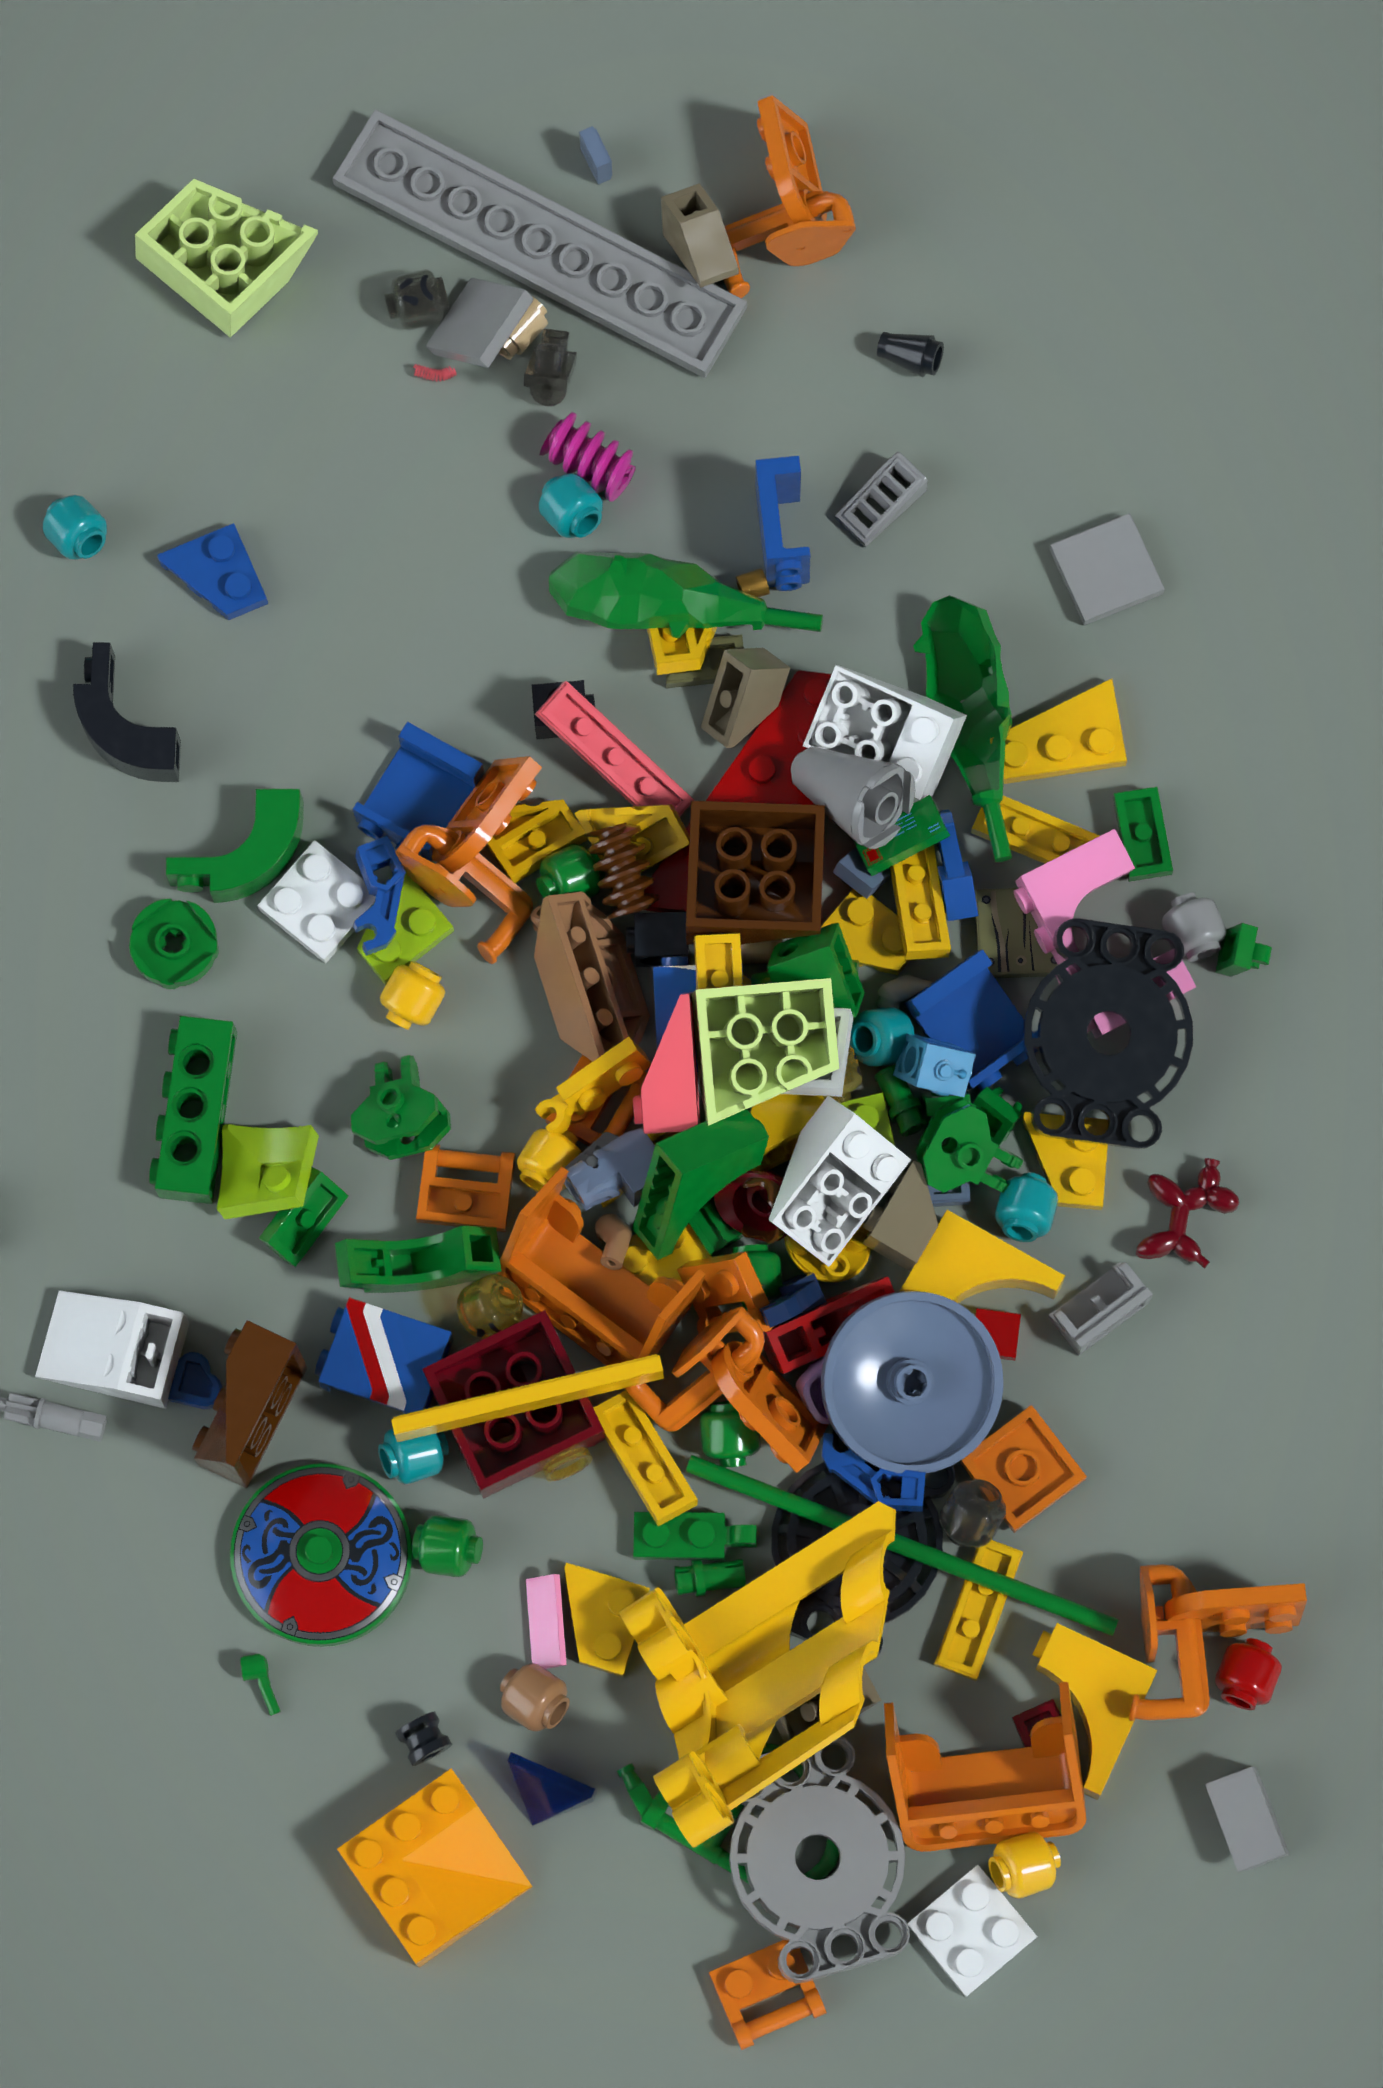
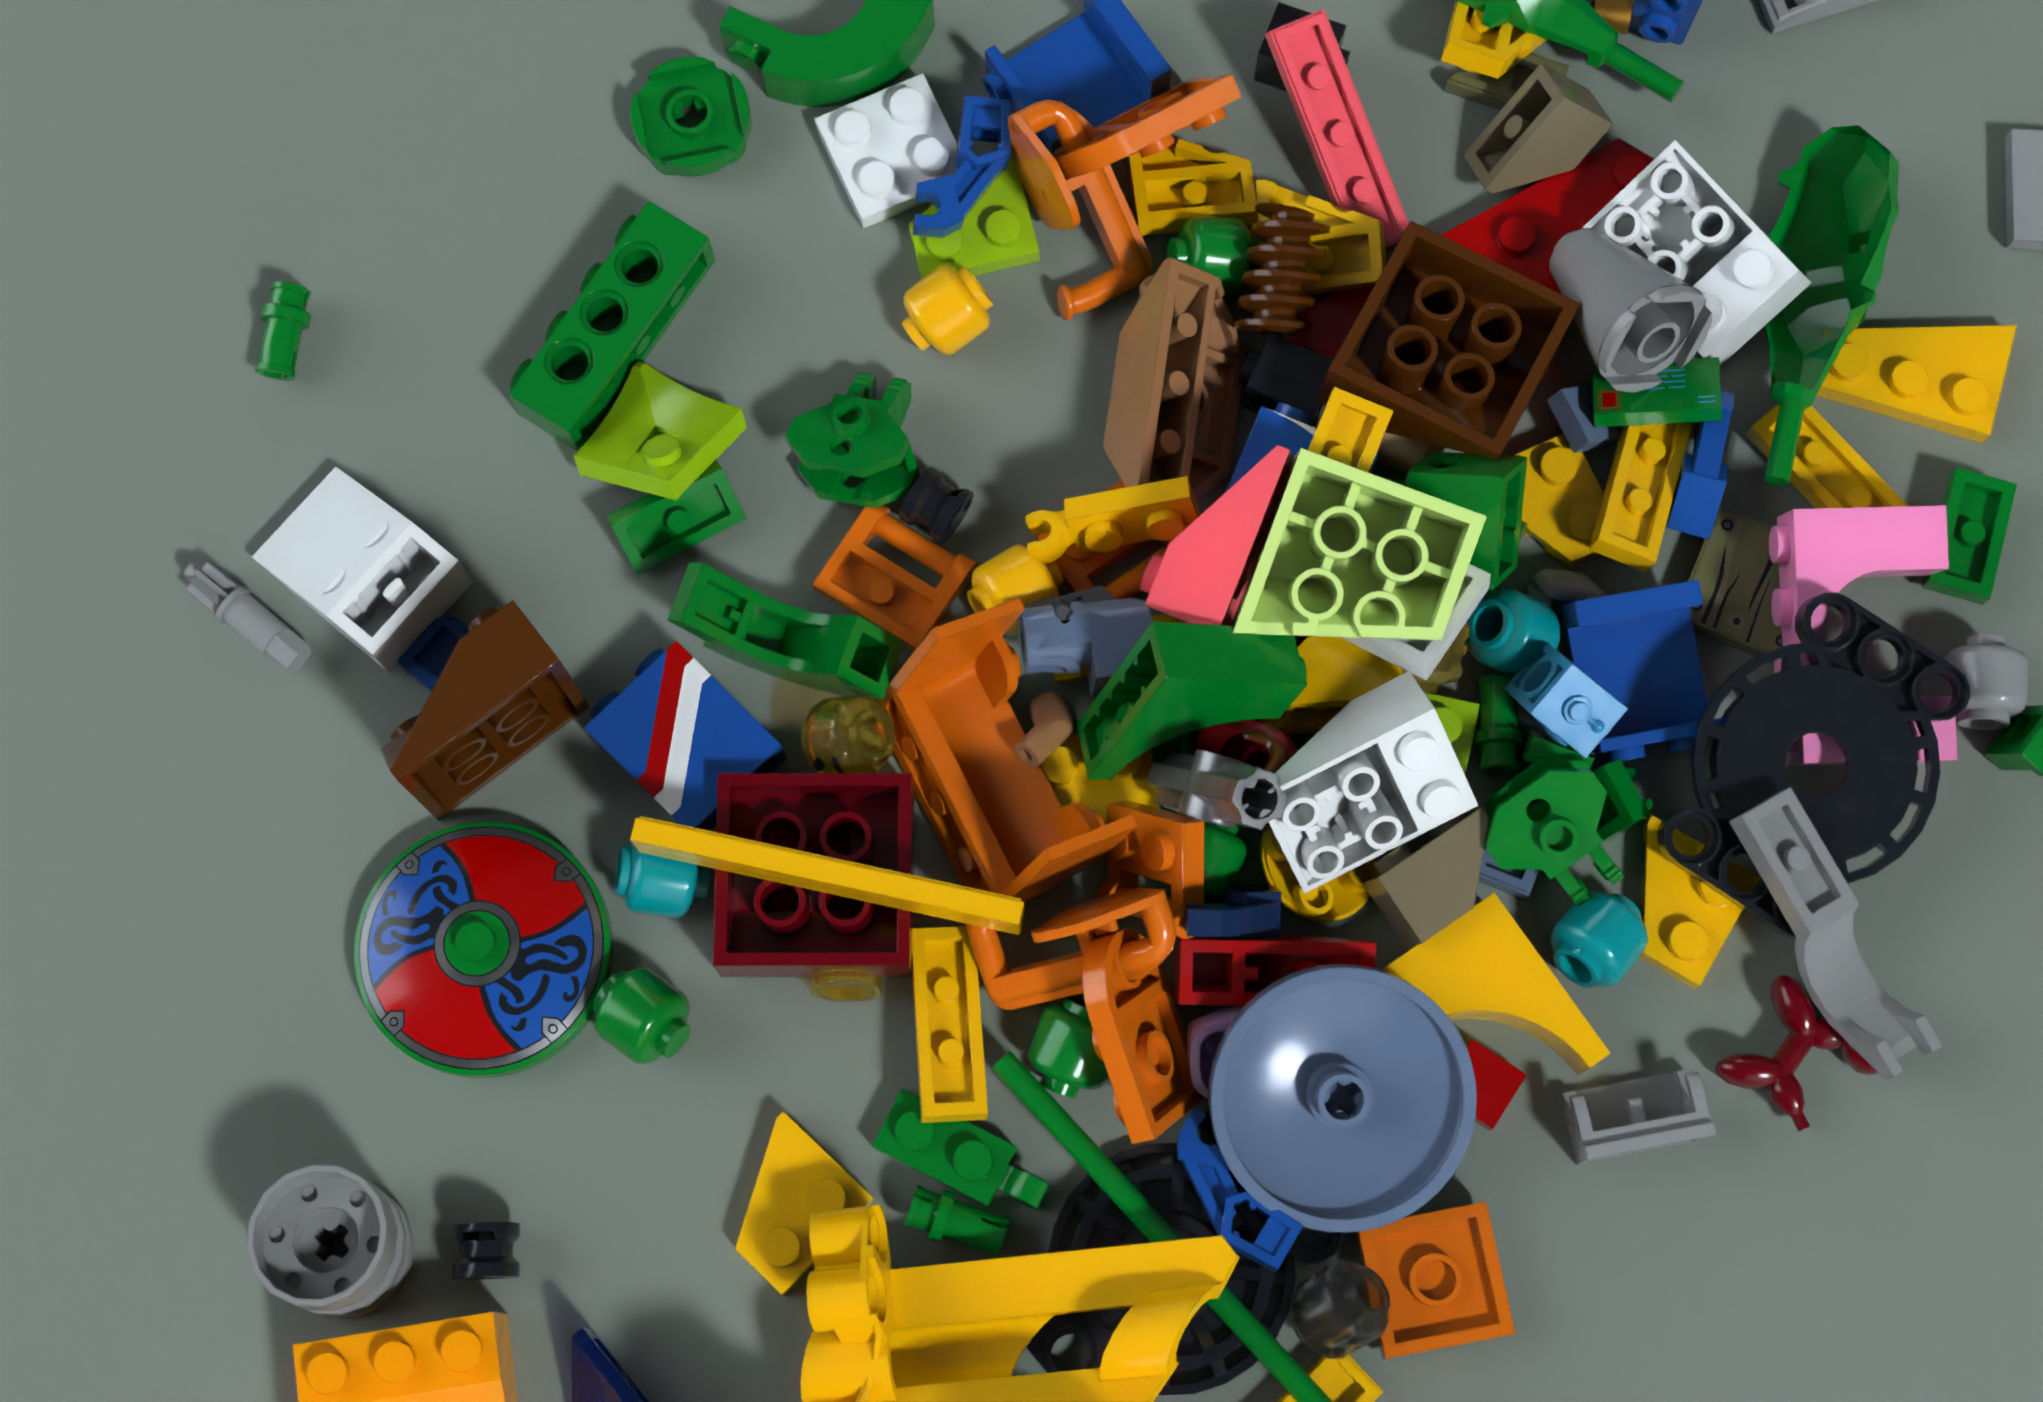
camera: 25 degrees right, 0 degrees up
(254, 1668) = (330, 1054): green hand -> none
(315, 1754) = (294, 1235): none -> light grey wheel
(470, 1128) = (936, 505): none -> black wheel
(534, 1697) = (653, 1268): medium nougat head -> none
(546, 1621) = (719, 1176): bright pink piece -> none
(743, 1228) = (1217, 789): none -> flat silver piece
(1167, 1145) = (1821, 916): none -> light grey piece

